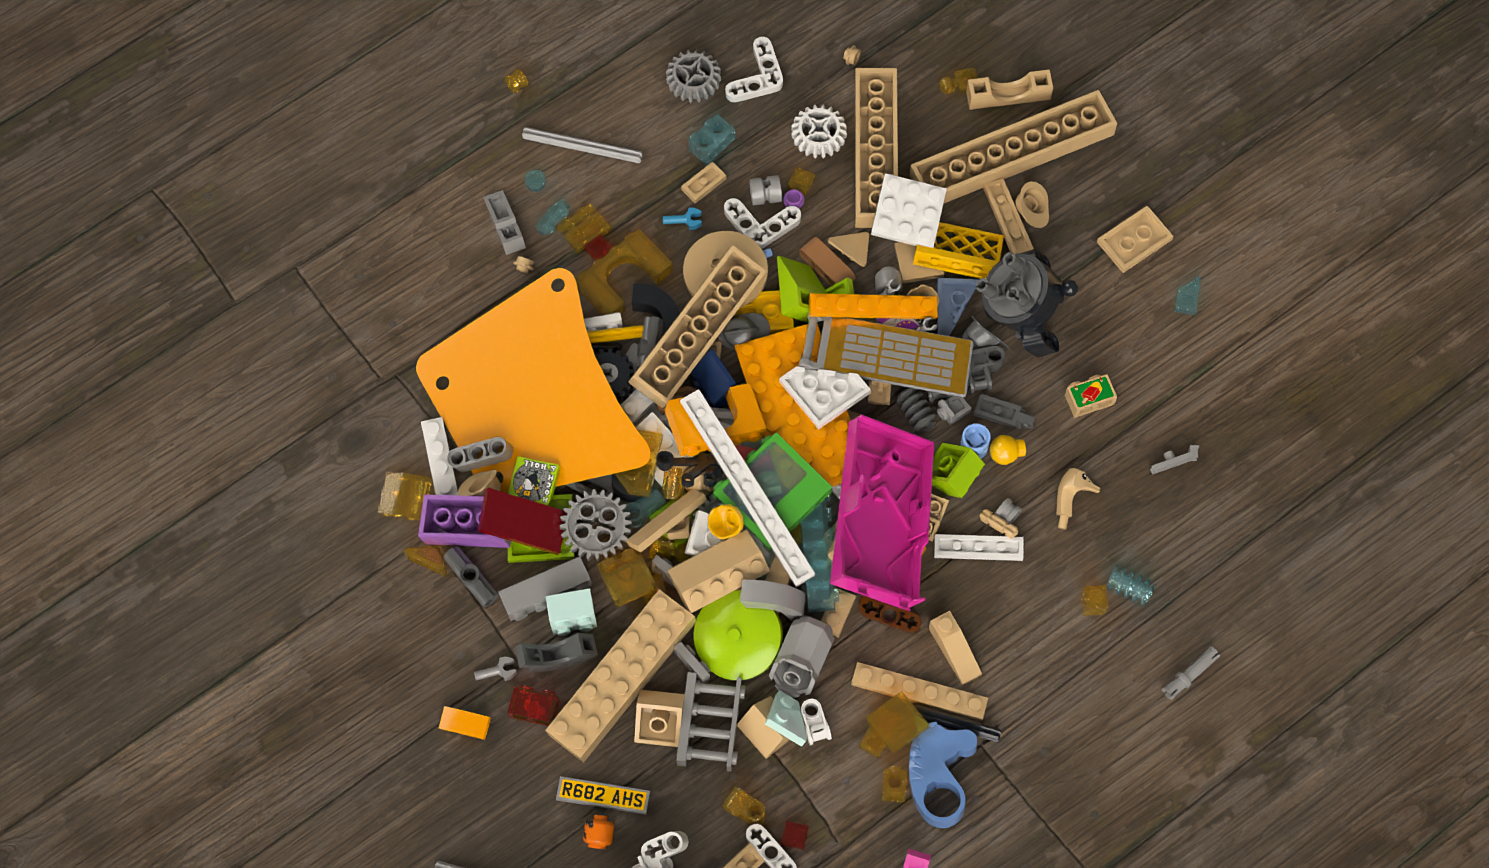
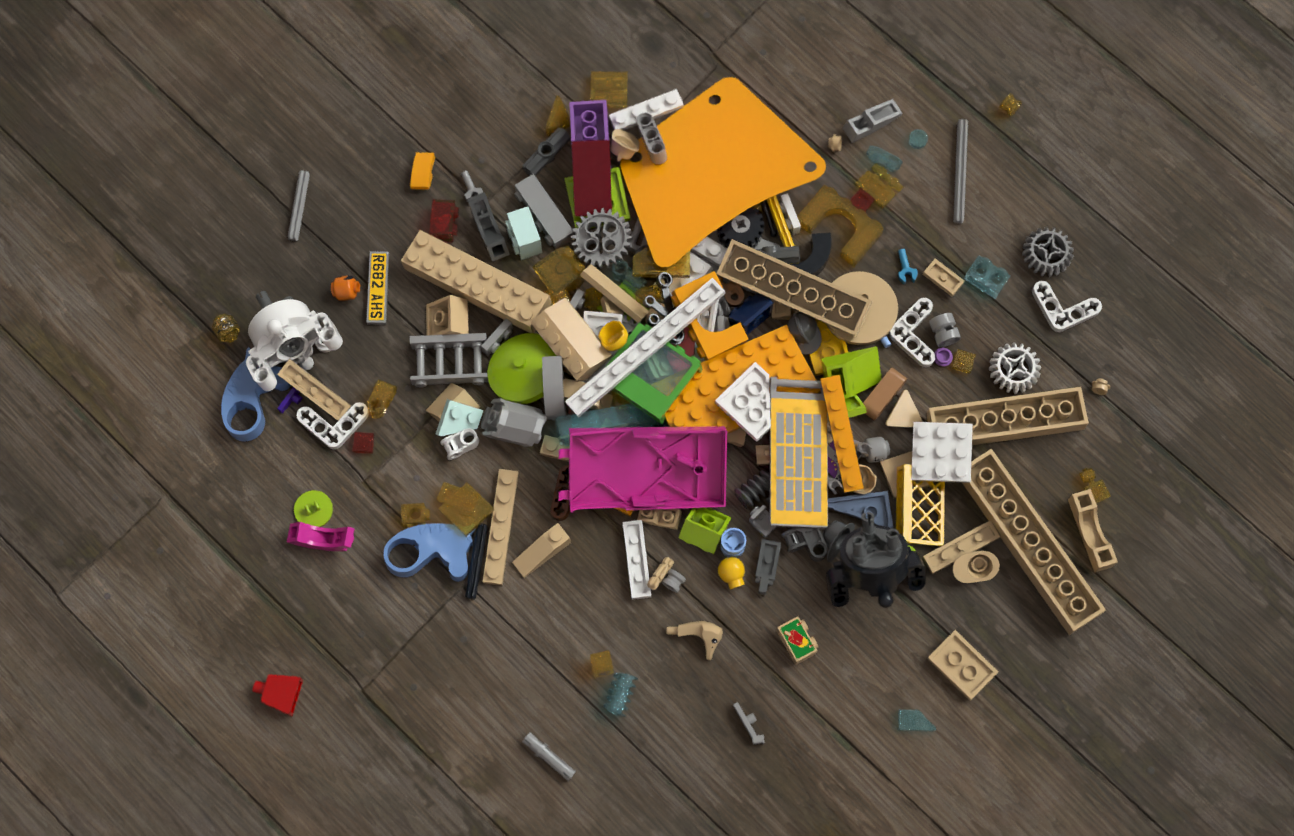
camera: 80 degrees right, 5 degrees up
(534, 480) = (632, 183): tile -> none

